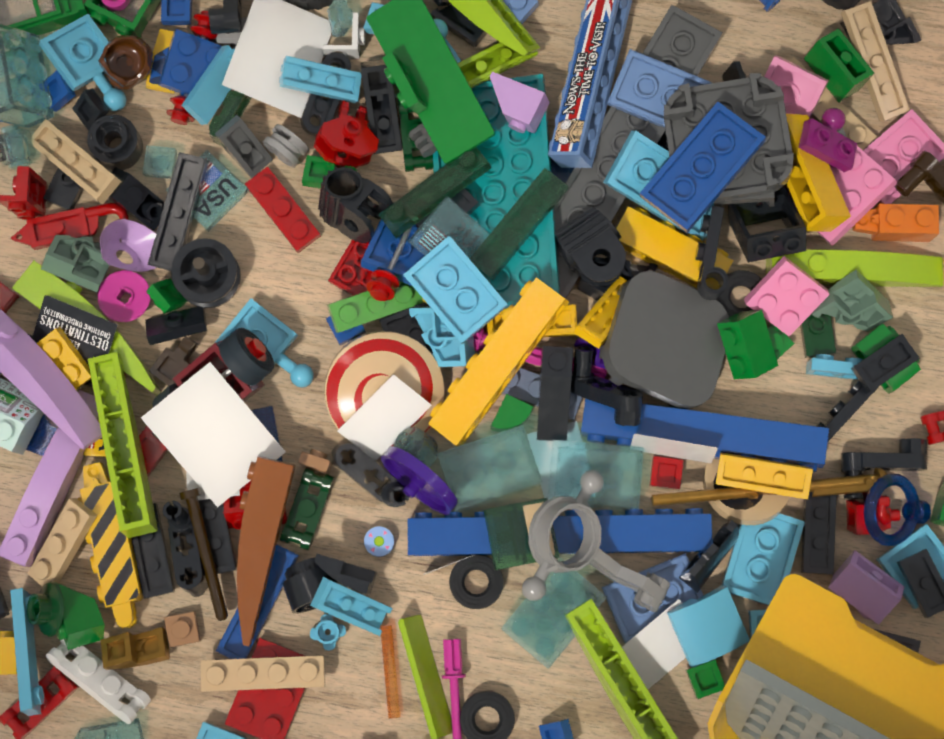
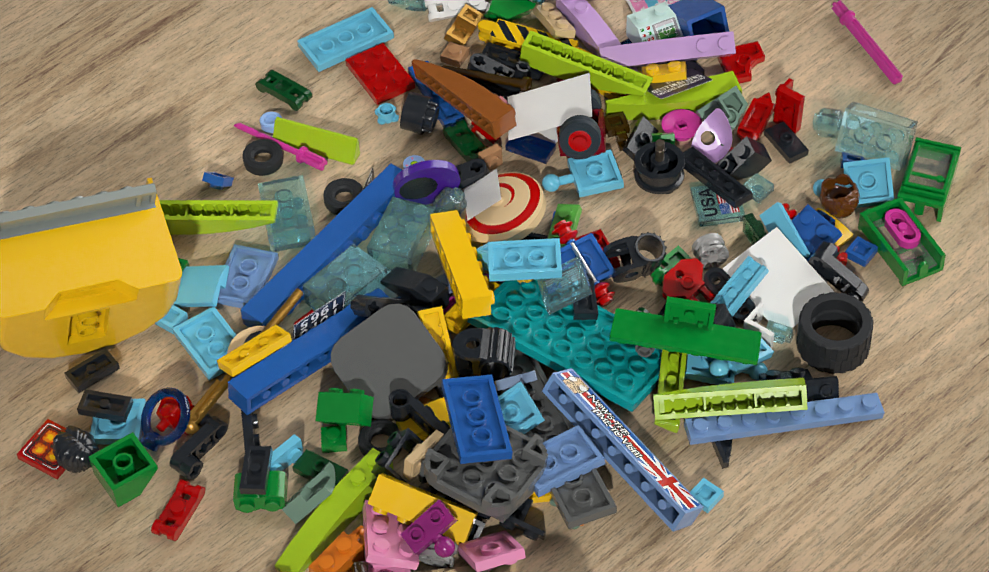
camera: 130 degrees right, 30 degrees down
(74, 161) = (790, 137): tan plate -> none
(89, 108) = (824, 172): black plate -> none
(109, 128) = (790, 171): black piece -> none
(243, 146) = (732, 229): dark grey slope -> none
(262, 673) = (391, 67): tan plate -> none
(282, 210) = (673, 233): red plate -> none
(347, 574) = (405, 129): black slope -> none
(350, 606) = (387, 118): medium azure hinge -> none
(390, 672) = (328, 126): clear orange bar -> none
(429, 193) = (604, 295): clear green plate -> none
(509, 534) = (346, 216): clear green slope -> none
(511, 414) = (426, 263): green brick -> none
(519, 103) = (623, 372): lavender slope -> none
(519, 223) = (539, 324): clear green plate -> none
(606, 200) = (506, 383): none -> sand blue plate
(649, 588) = (251, 262): light grey piece -> none
(655, 649) = (217, 252): white sticker -> none
(707, 560) = (236, 306): black slope -> none
(761, 206) = (413, 461): none -> tan plate
(786, 296) = (353, 449): bright pink plate -> none
(819, 535) = (191, 380): black plate -> none
(866, 587) = (136, 377): lavender brick -> none

